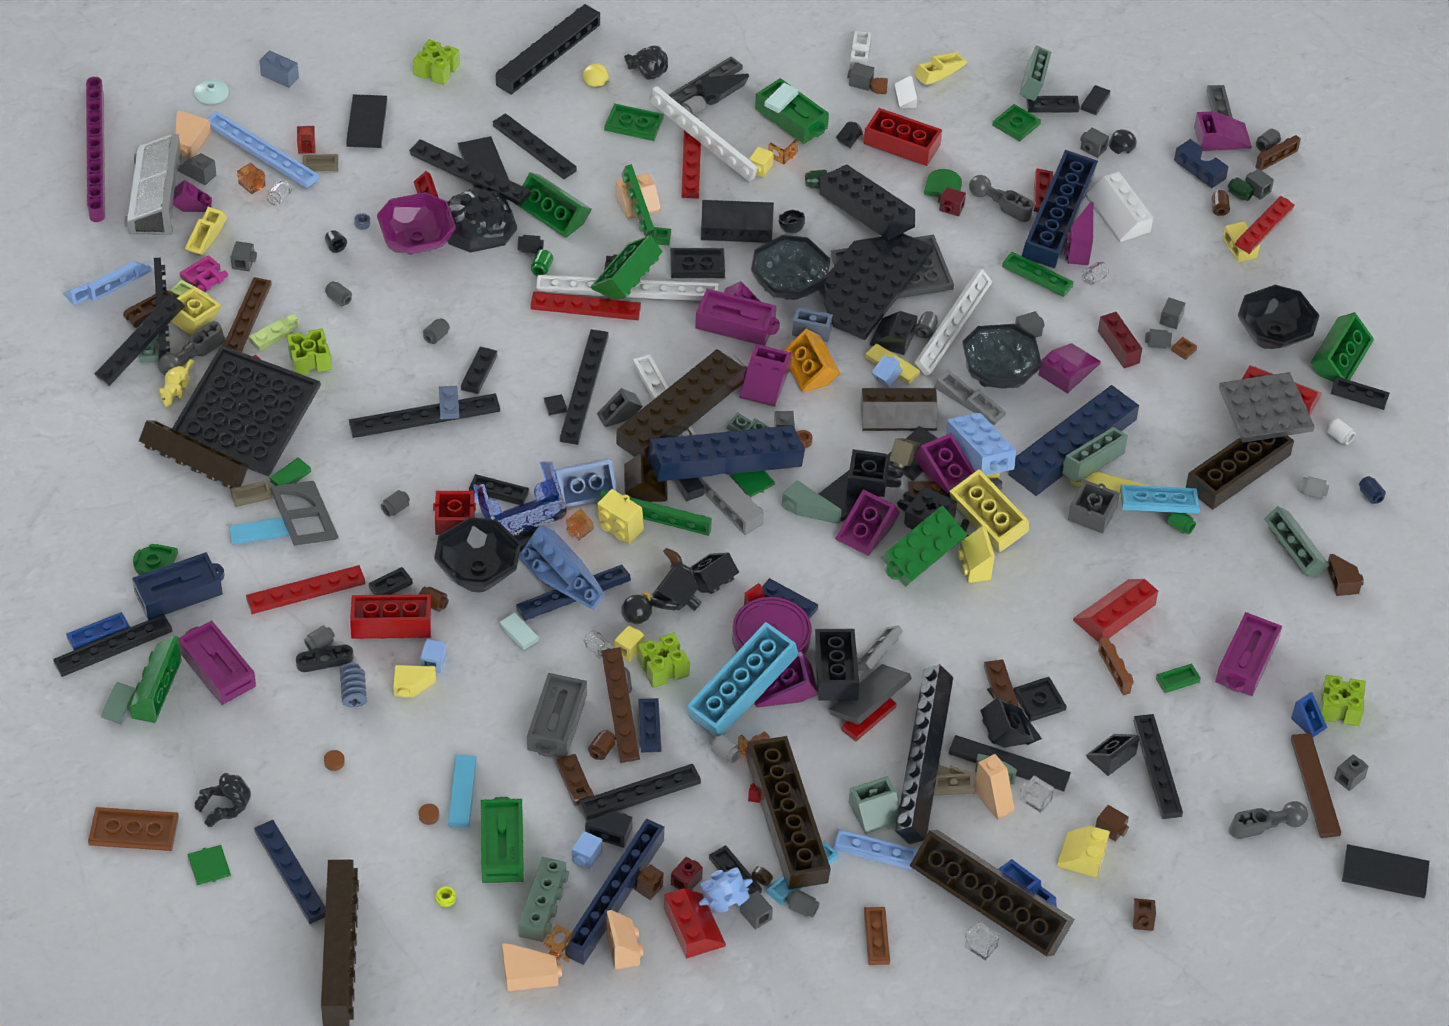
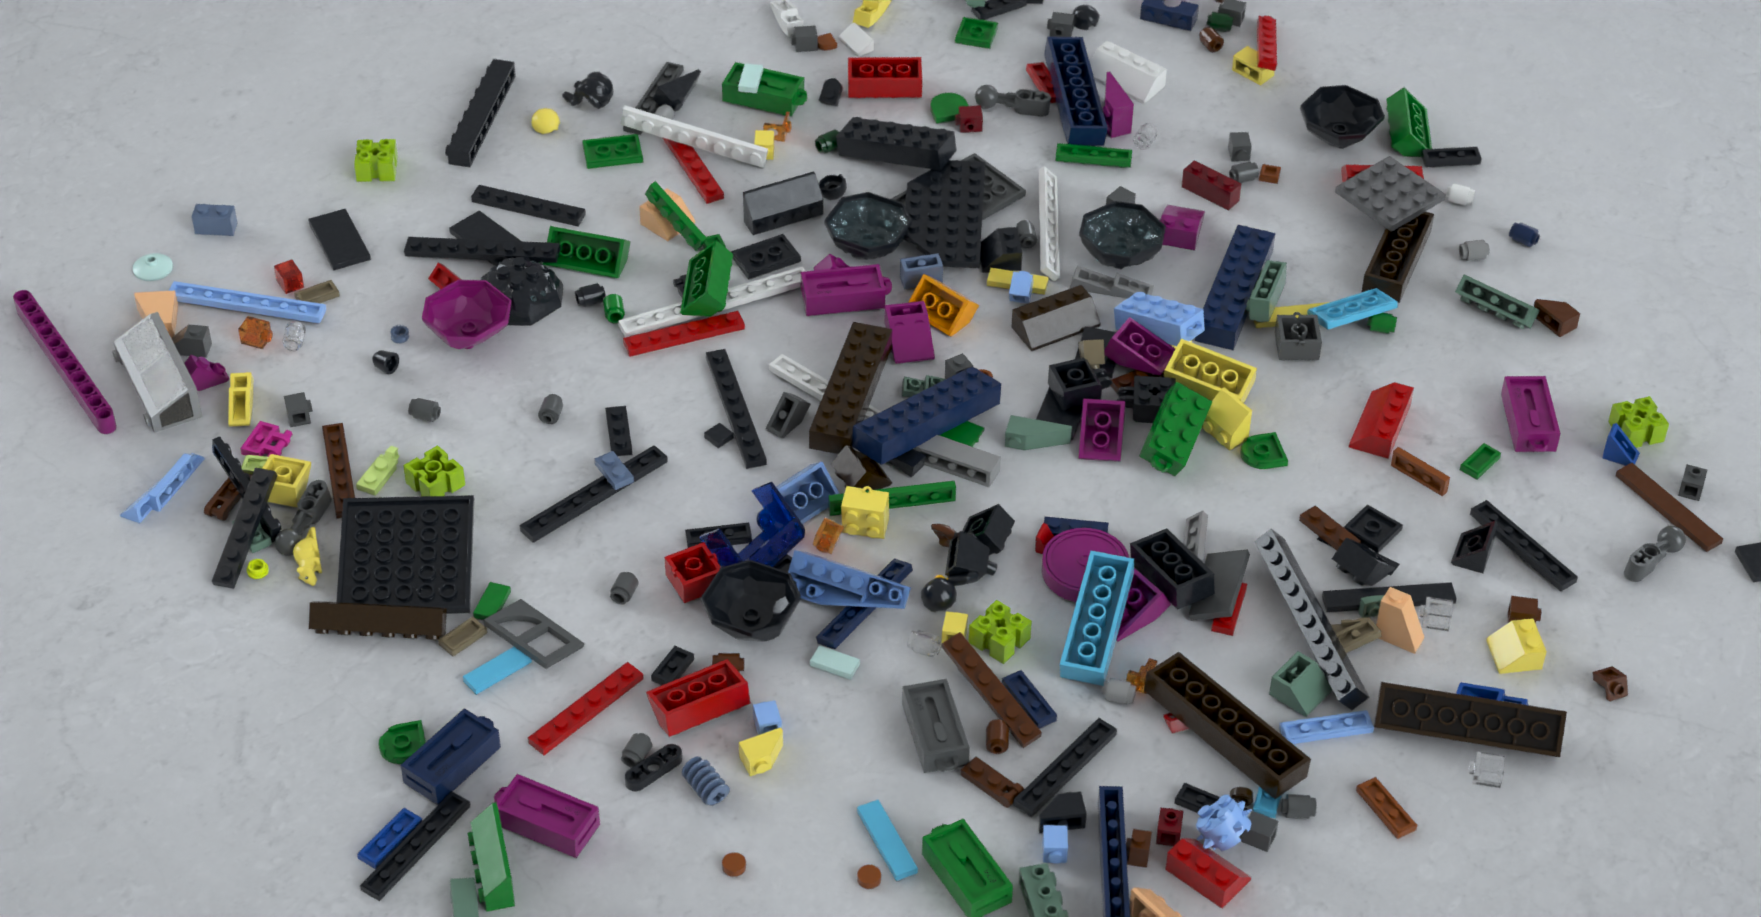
camera: 25 degrees left, 5 degrees down
(133, 377) = (257, 569): none -> neon yellow plate
(995, 595) = (1263, 451): none -> green tile

